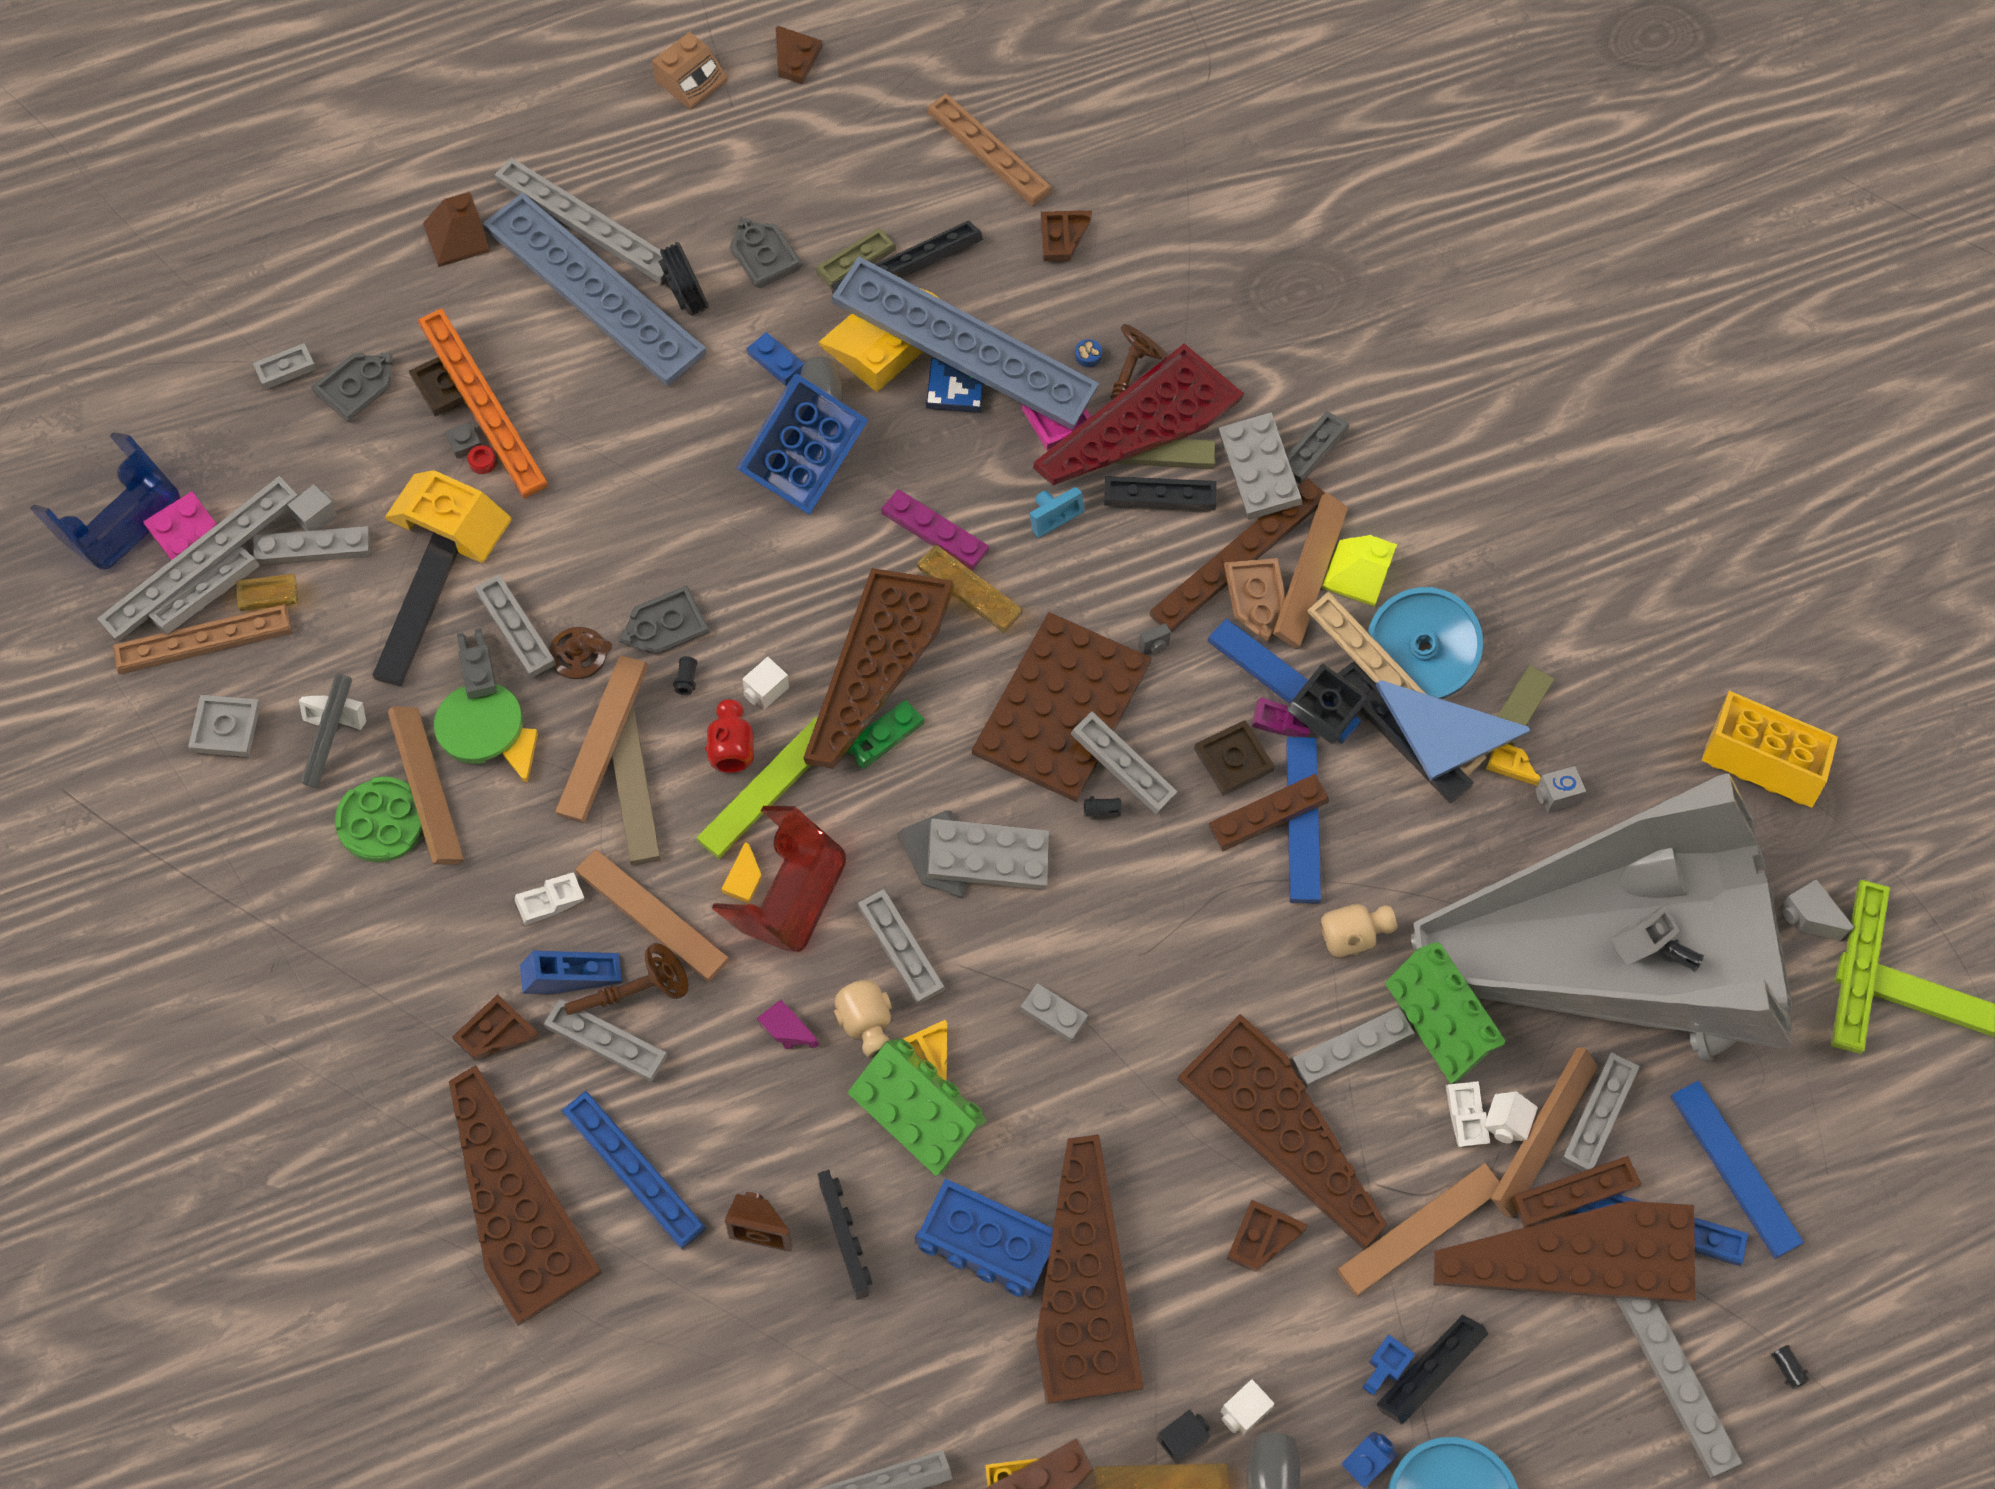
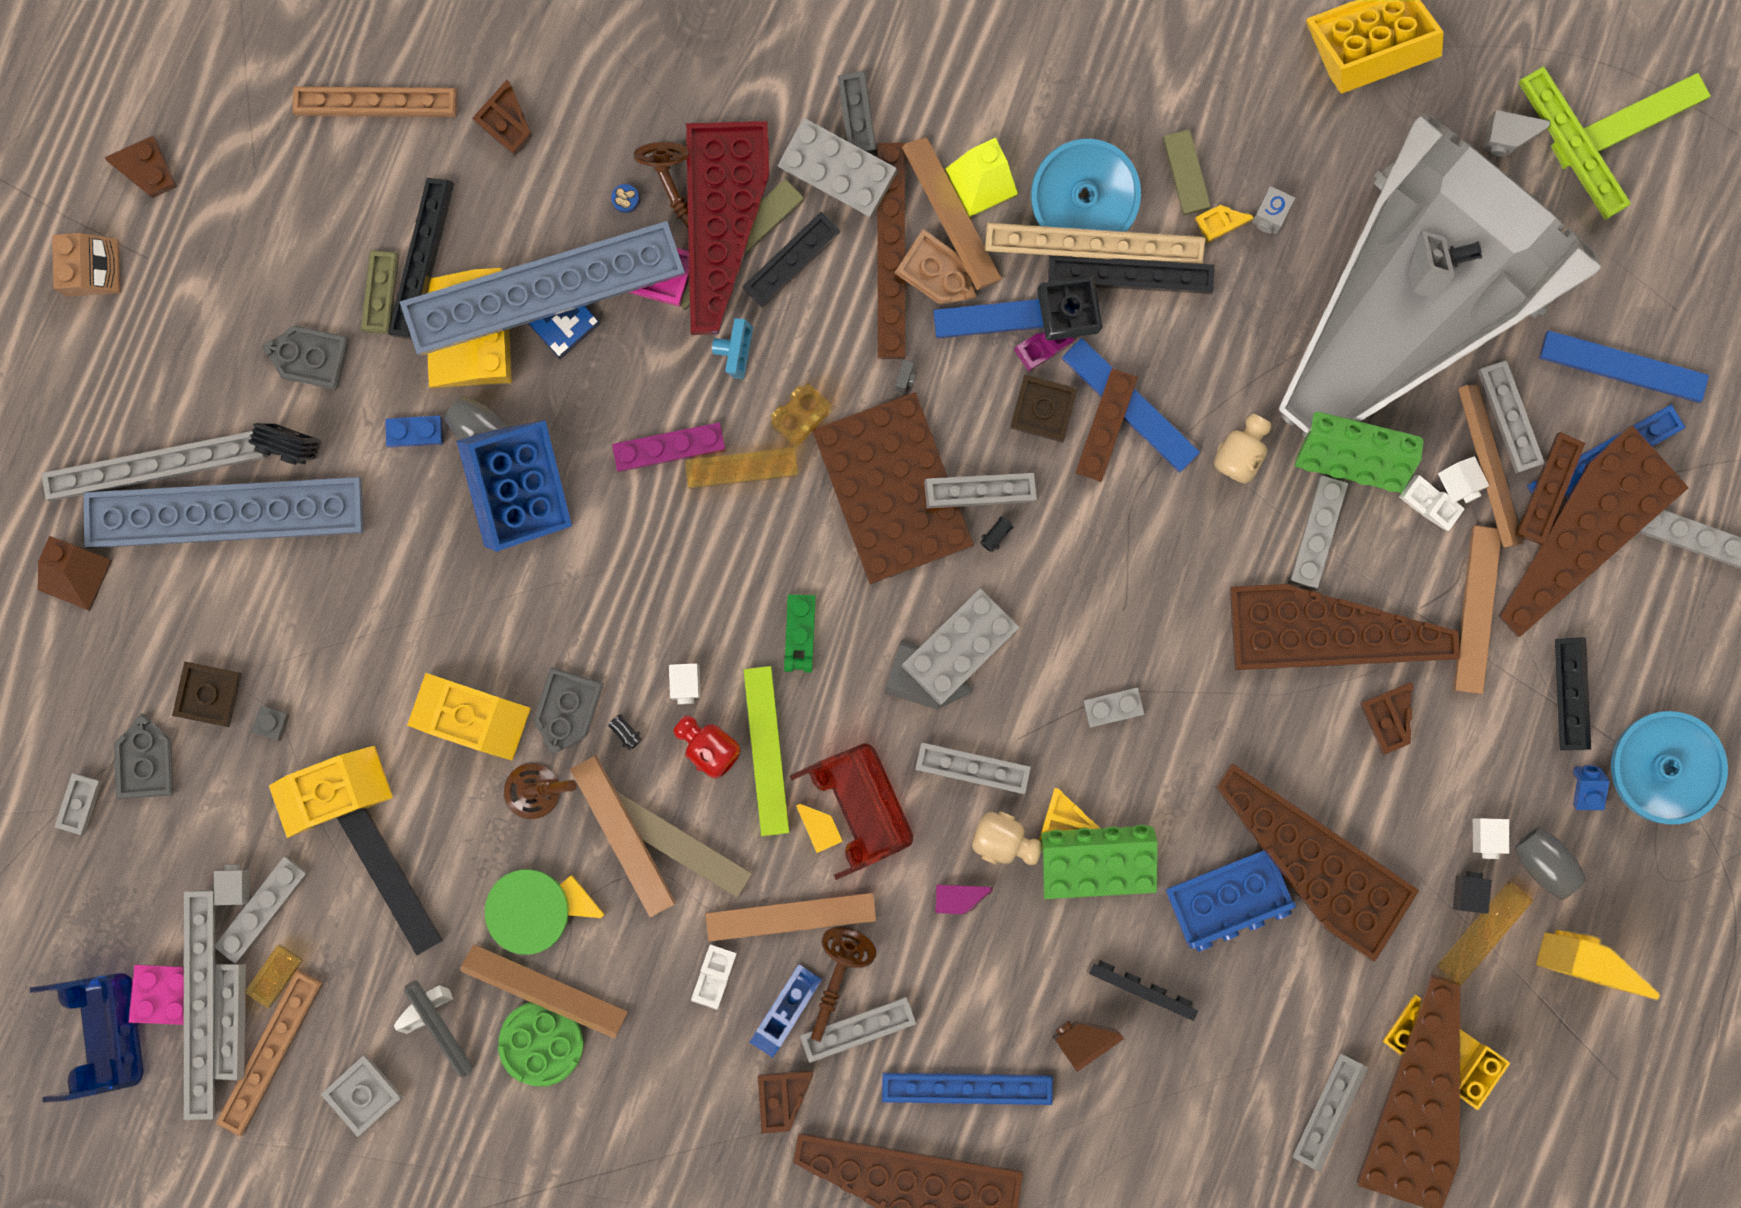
camera: 40 degrees left, 20 degrees up
(476, 666) = (480, 876): dark grey hinge -> none
(482, 403) = (252, 684): orange tile -> none
(482, 459) = (300, 723): red tile -> none
(515, 626) = (470, 819): light grey plate -> none
(596, 562) = (469, 717): none -> yellow slope
(886, 638) = (732, 568): reddish brown wing -> none
(1050, 599) = (806, 419): none -> clear yellow brick
(1389, 1362) = (1543, 714): blue plate -> none
(1445, 732) = (1164, 249): medium blue tile -> none

